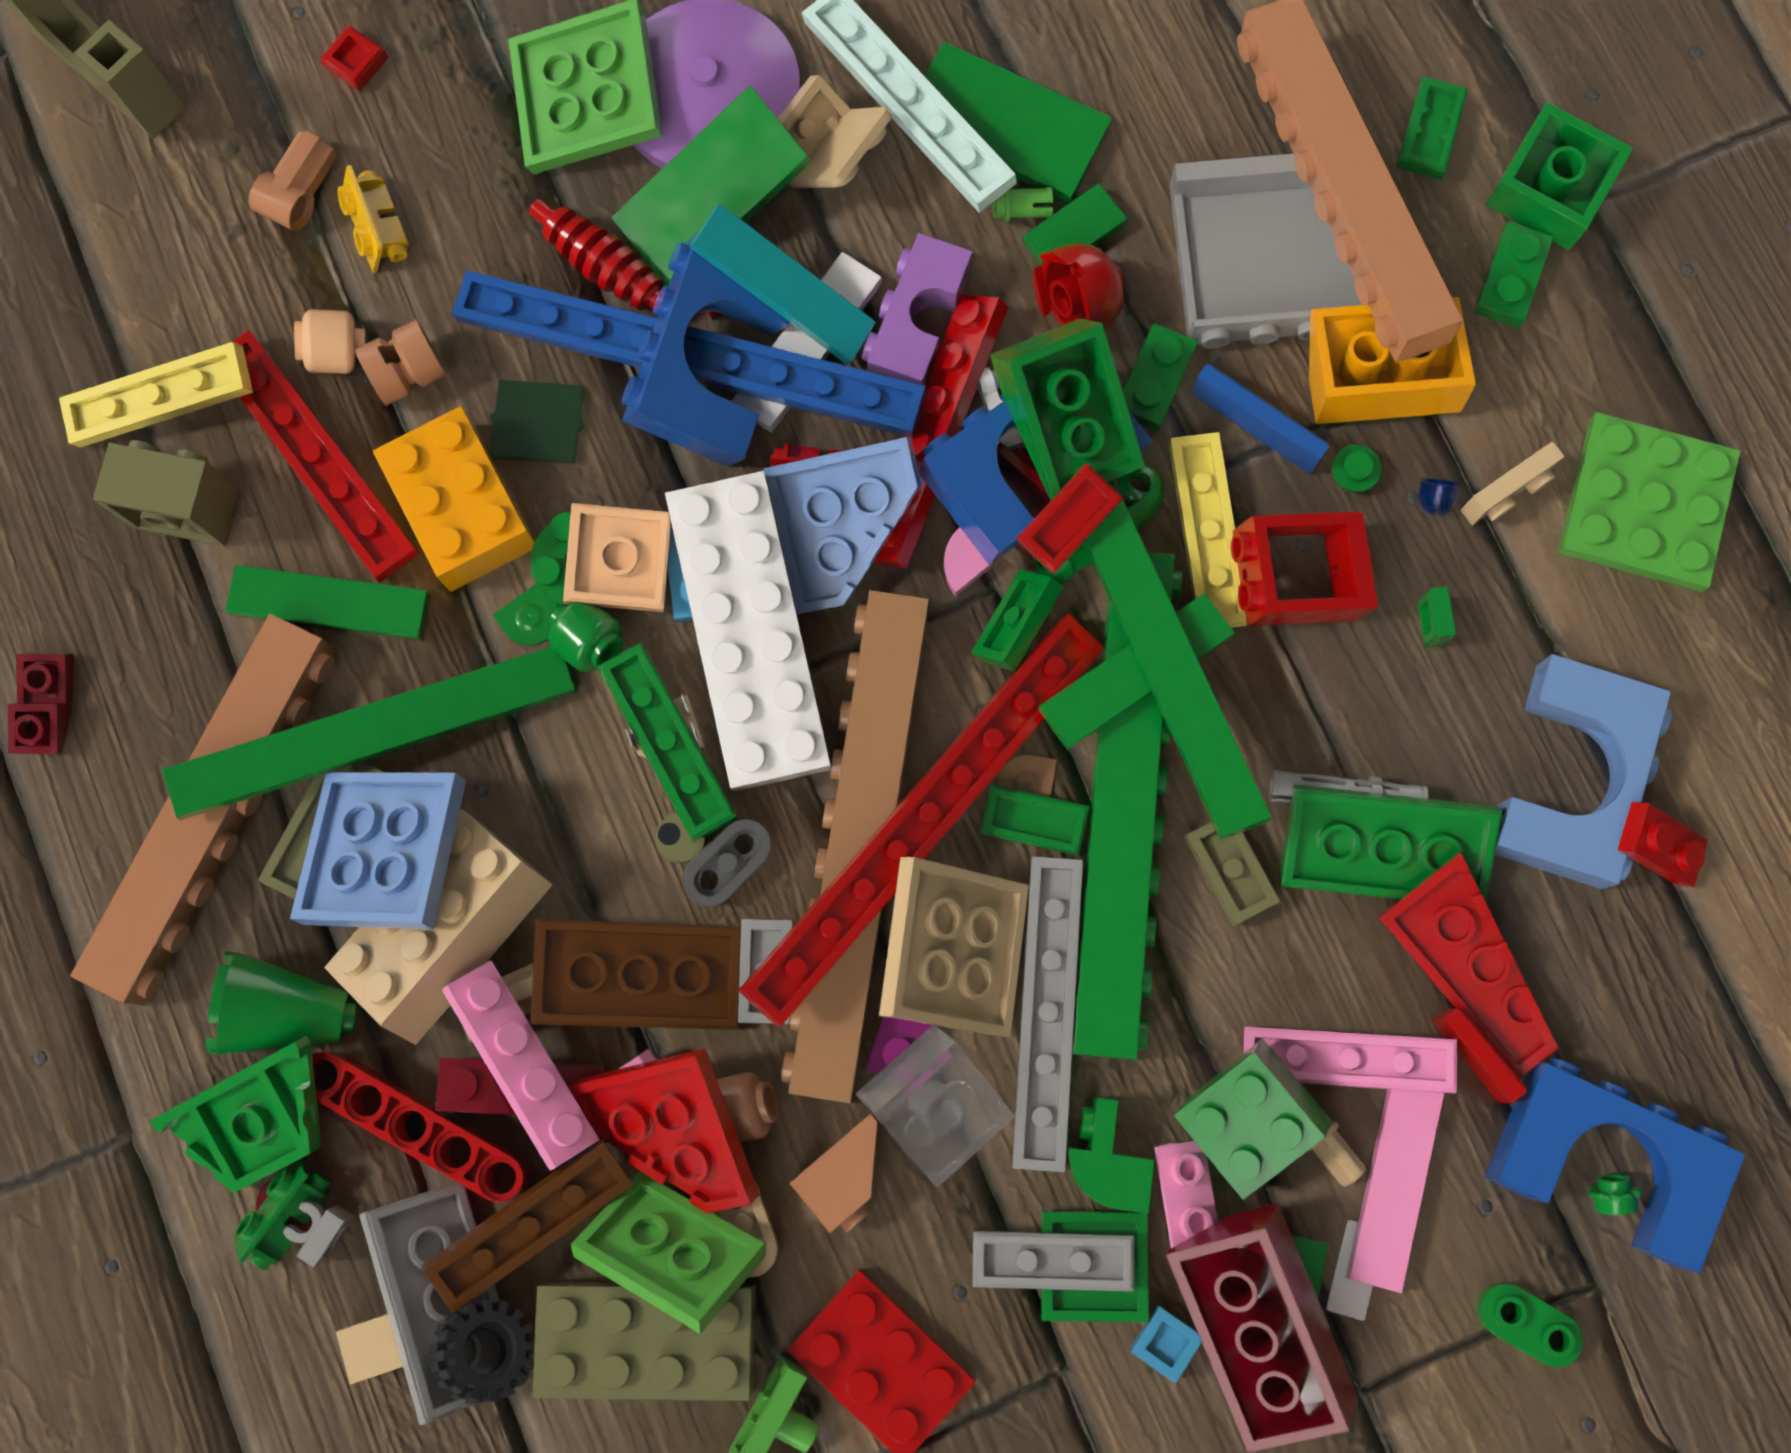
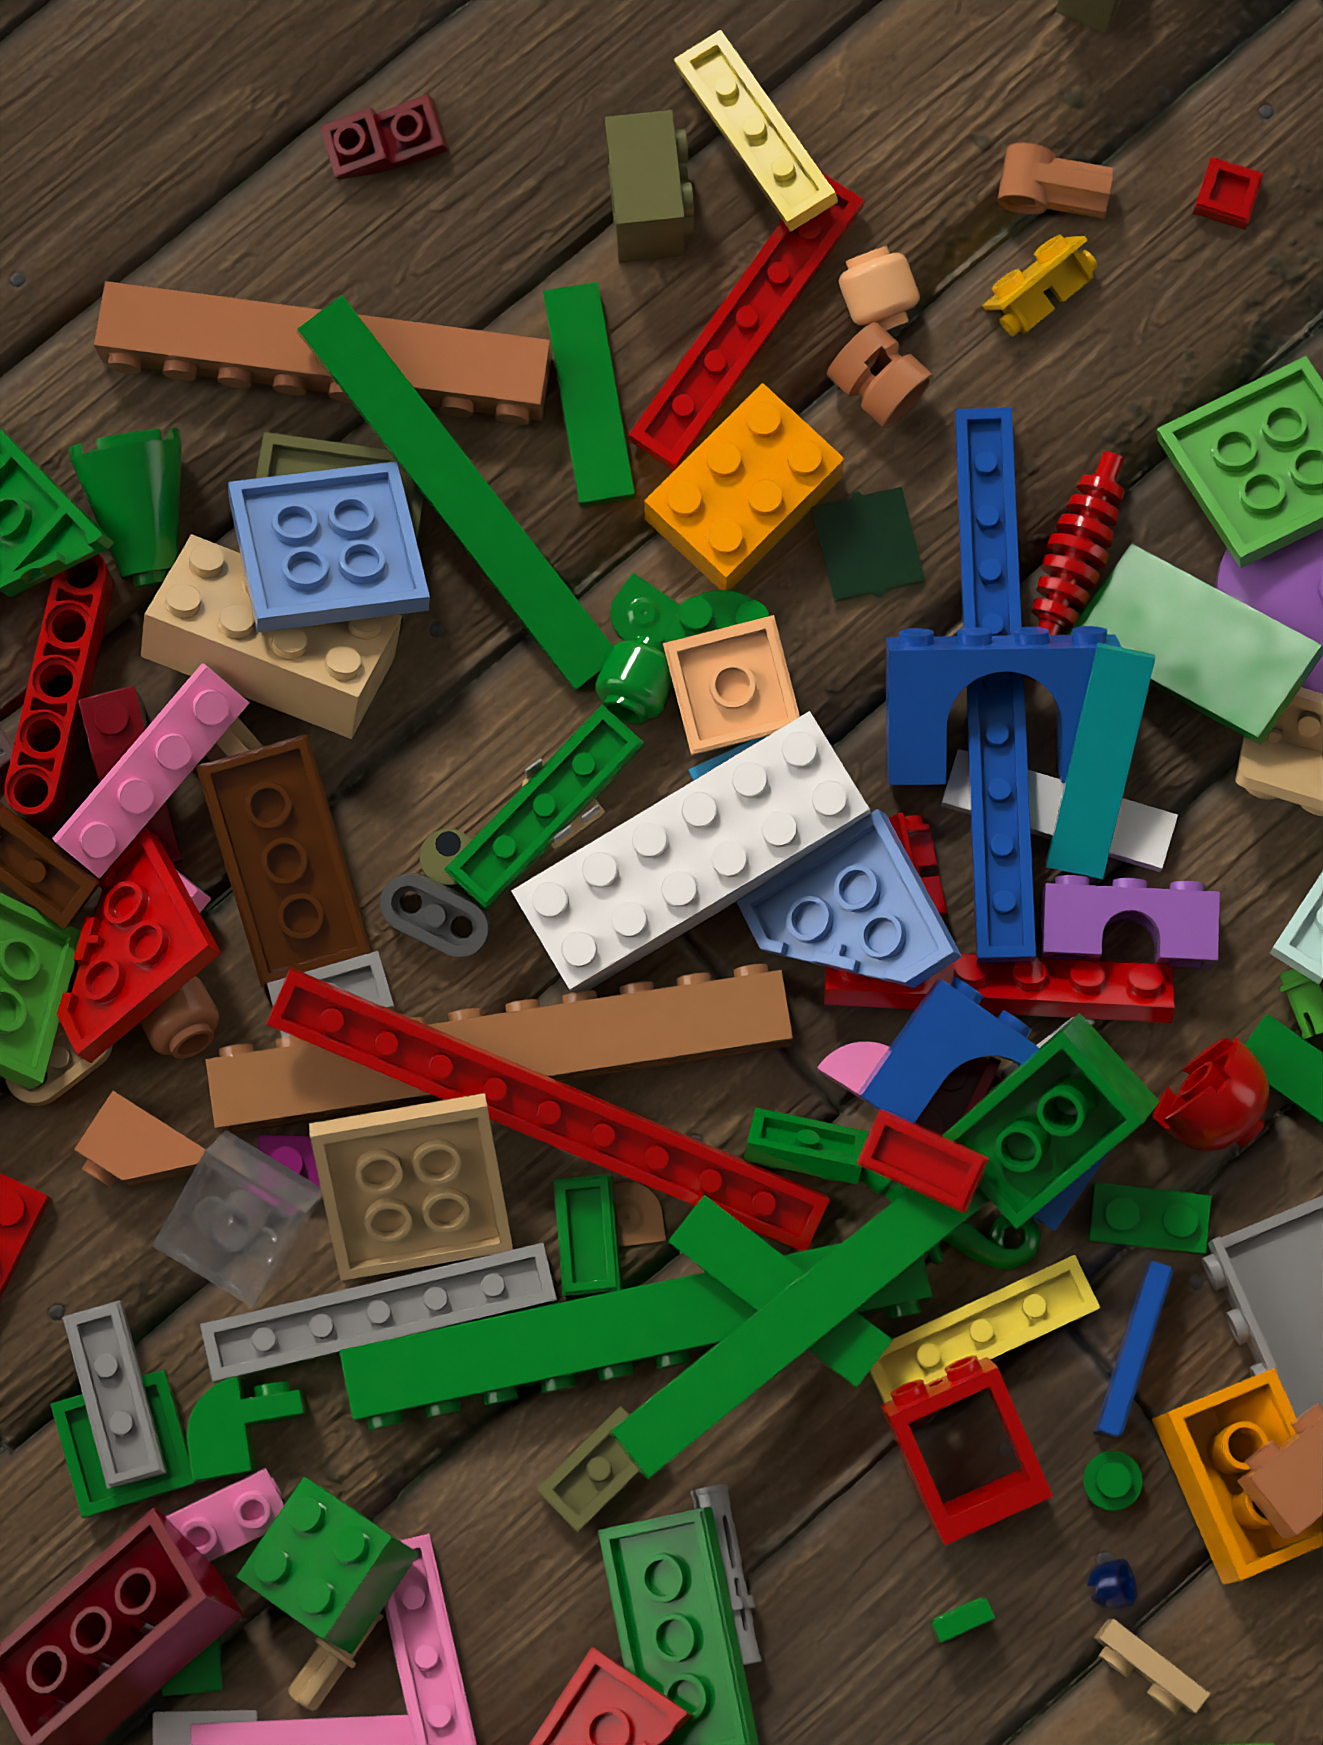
camera: 70 degrees right, 0 degrees up
(1166, 1344) = (64, 1543): dark azure plate -> none

